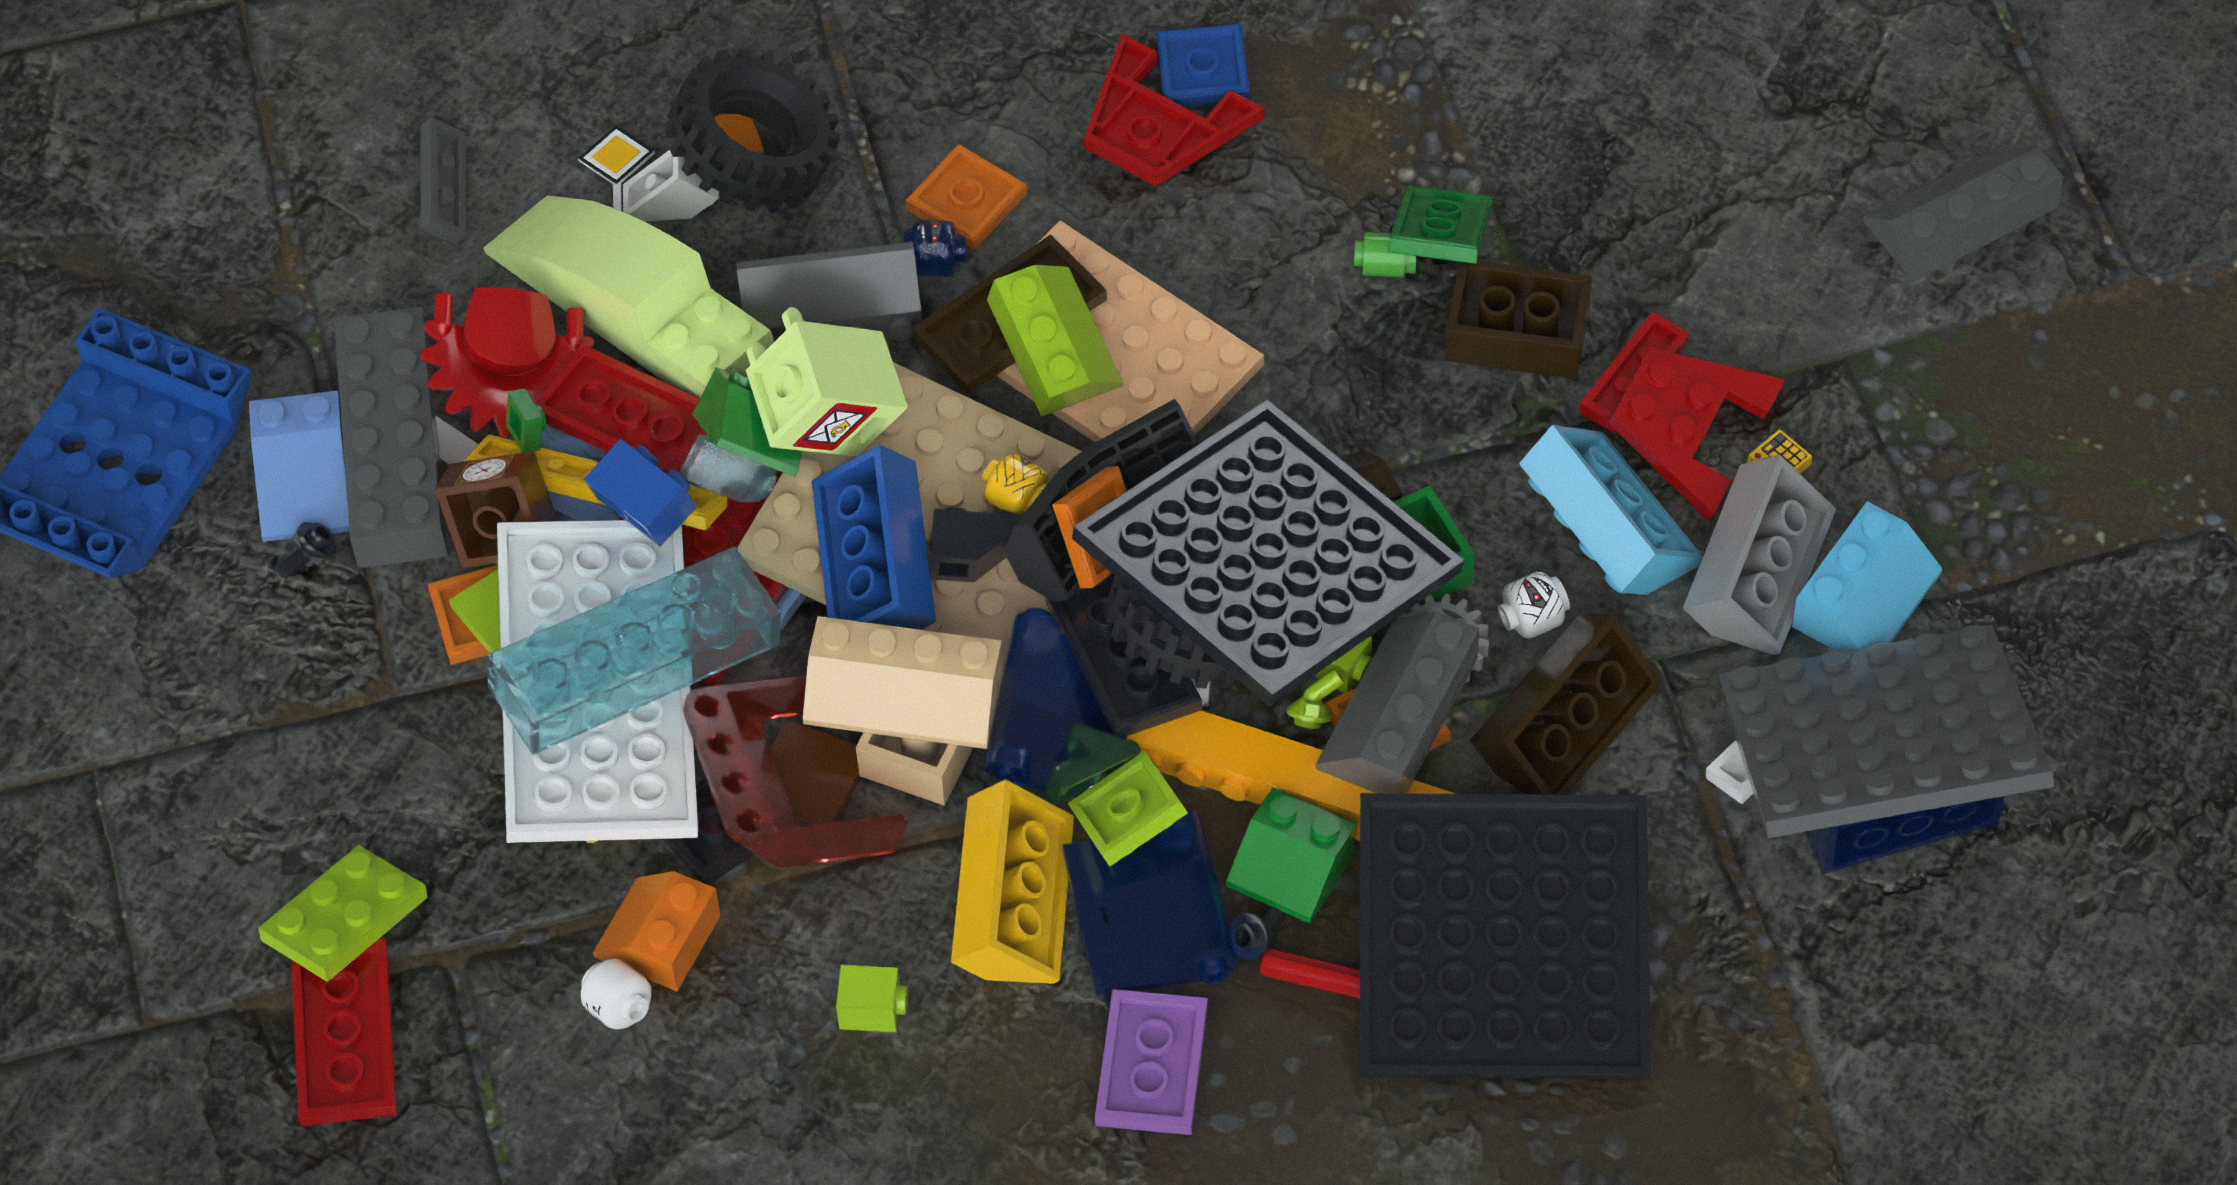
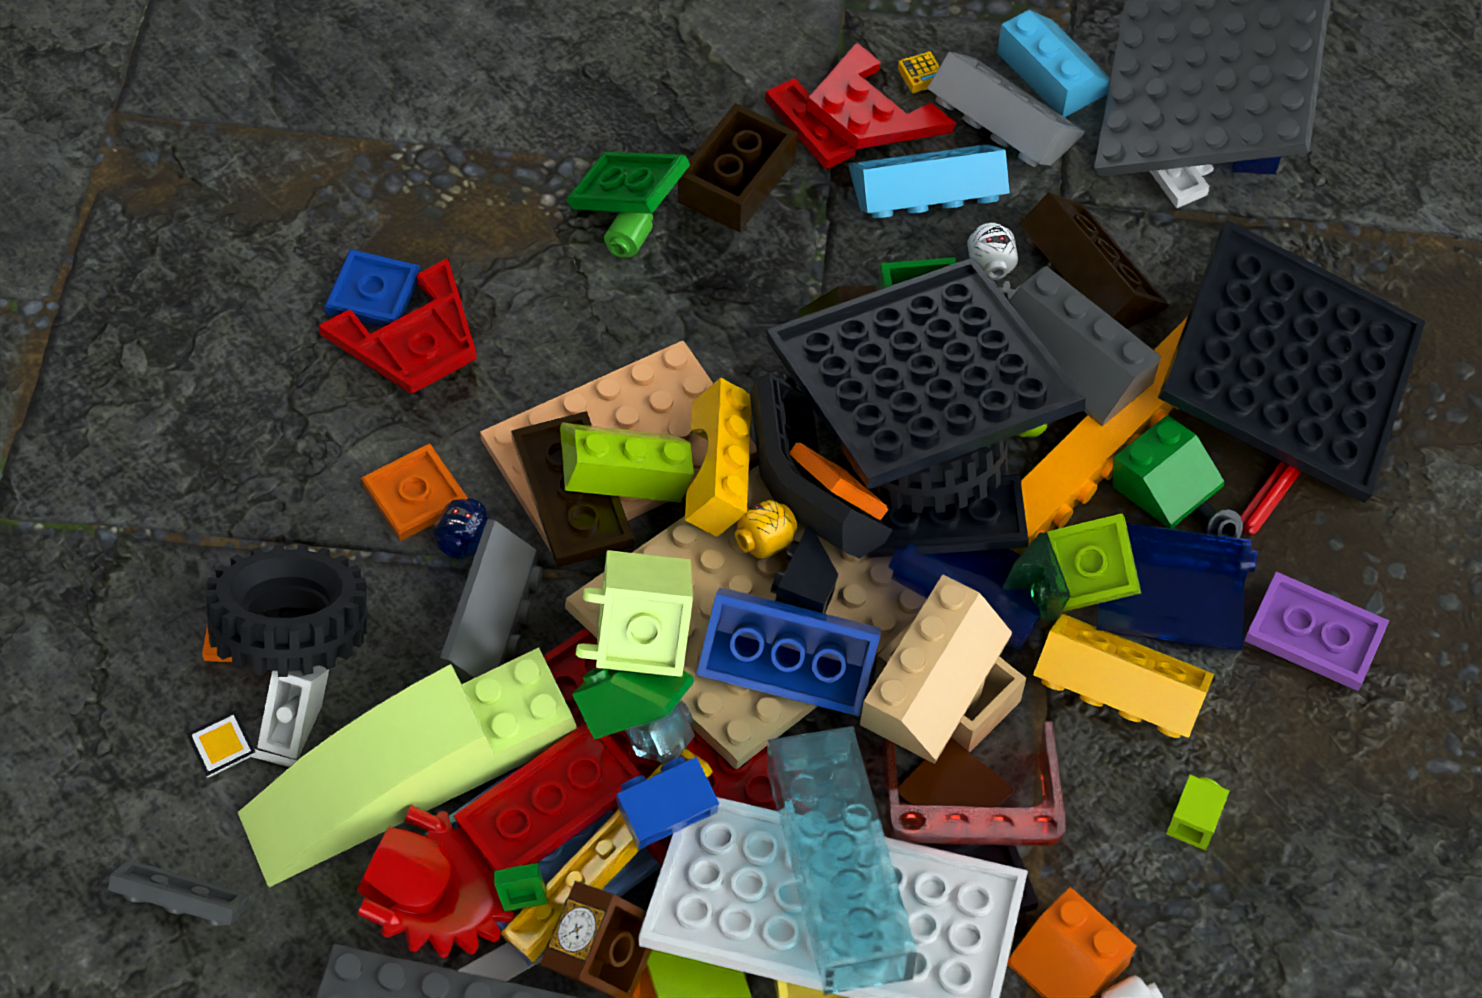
camera: 75 degrees left, 0 degrees up
(1079, 416) = (721, 487): none -> yellow arch

